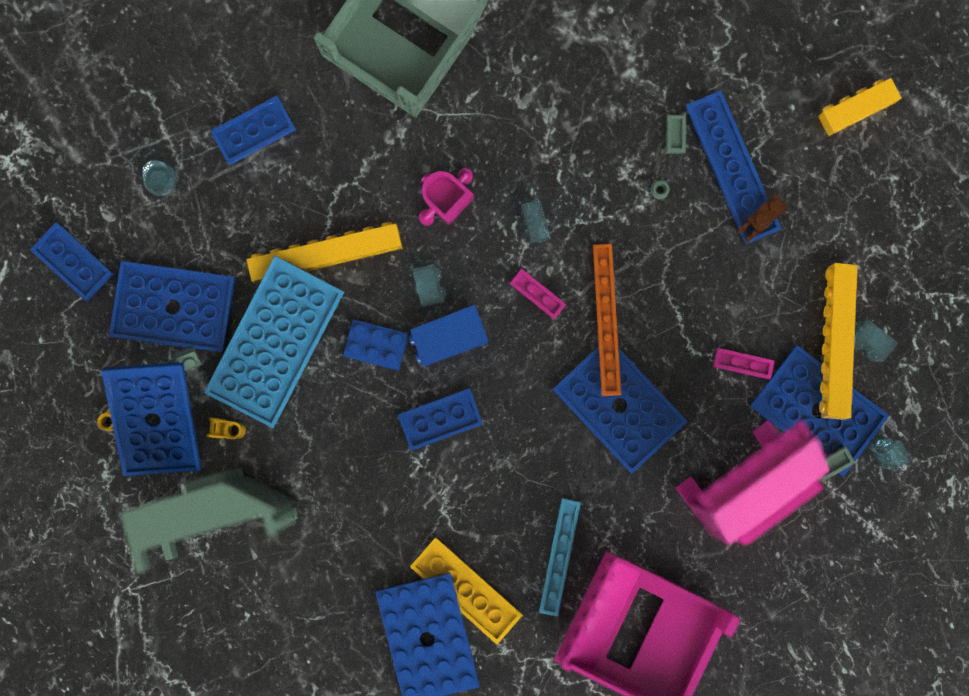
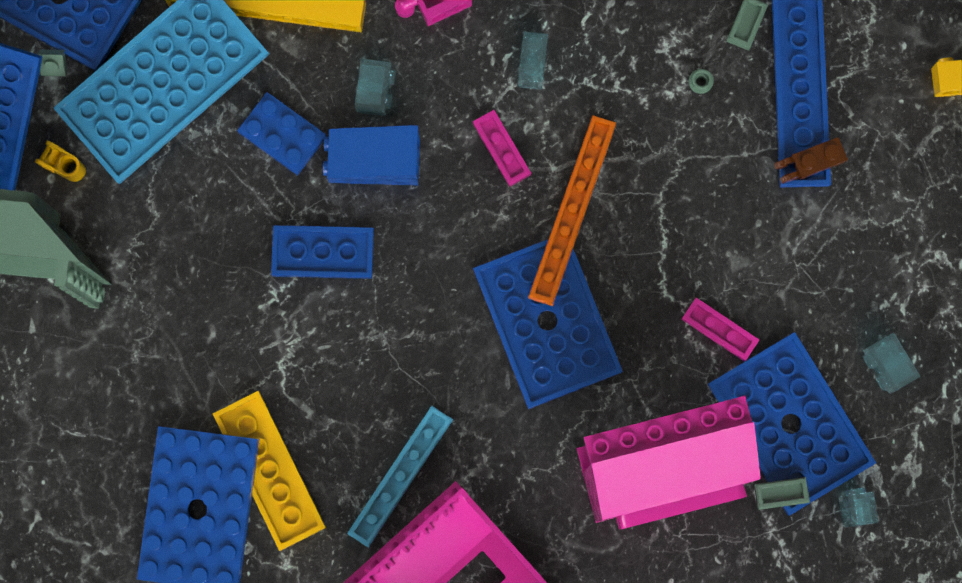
camera: 25 degrees right, 5 degrees down
(839, 341) = (847, 346): yellow brick -> none

